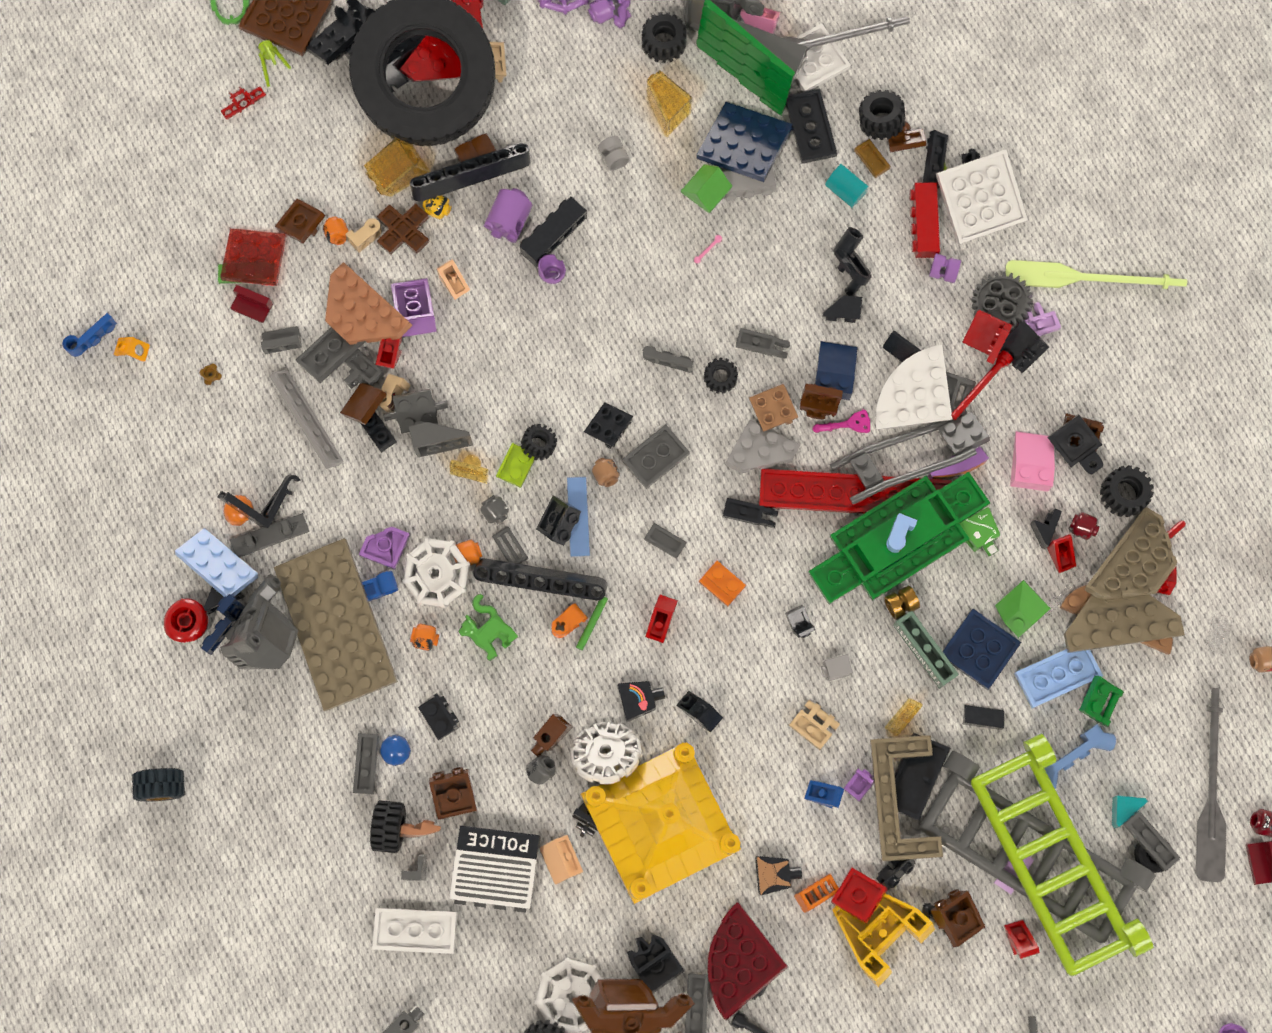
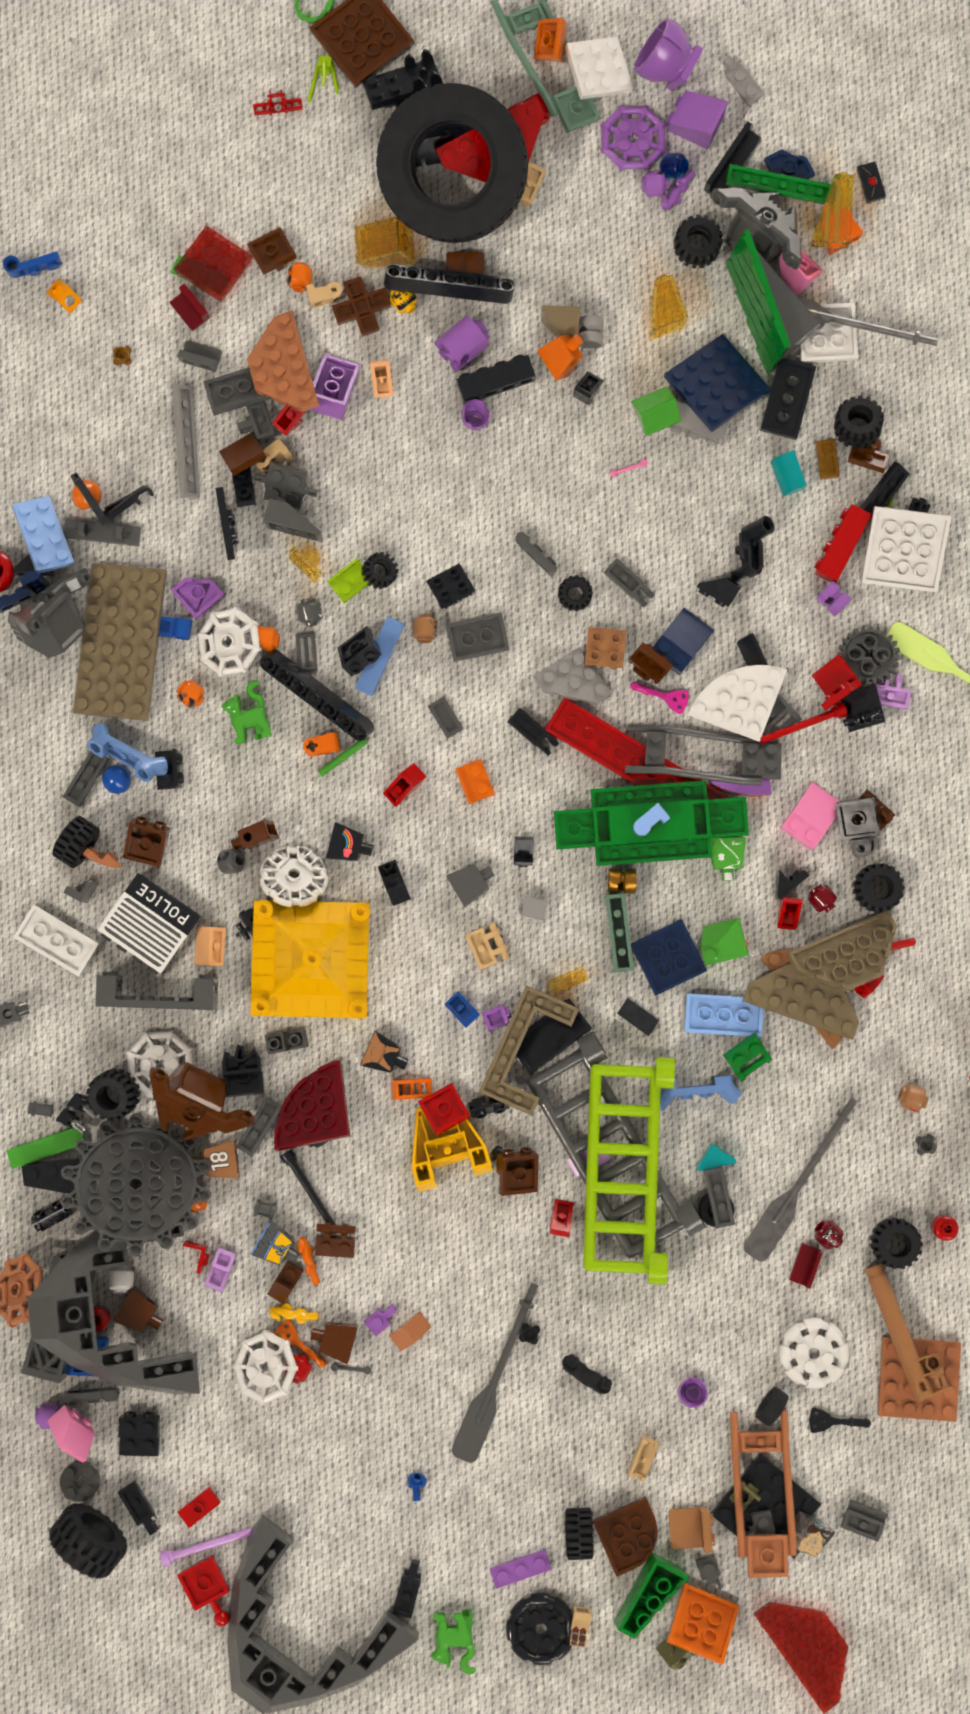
camera: 30 degrees right, 10 degrees up
(380, 467) = (227, 522): none -> black wing
(414, 722) = (144, 766): none -> medium blue plate
(492, 954) = (110, 995): none -> dark grey plate
(584, 156) = (561, 319): none -> dark tan slope
(600, 183) = (561, 355): none -> orange torso
(636, 201) = (587, 388): none -> black slope
(678, 910) = (286, 1041): none -> dark grey slope
(767, 675) = (470, 883): none -> dark grey torso

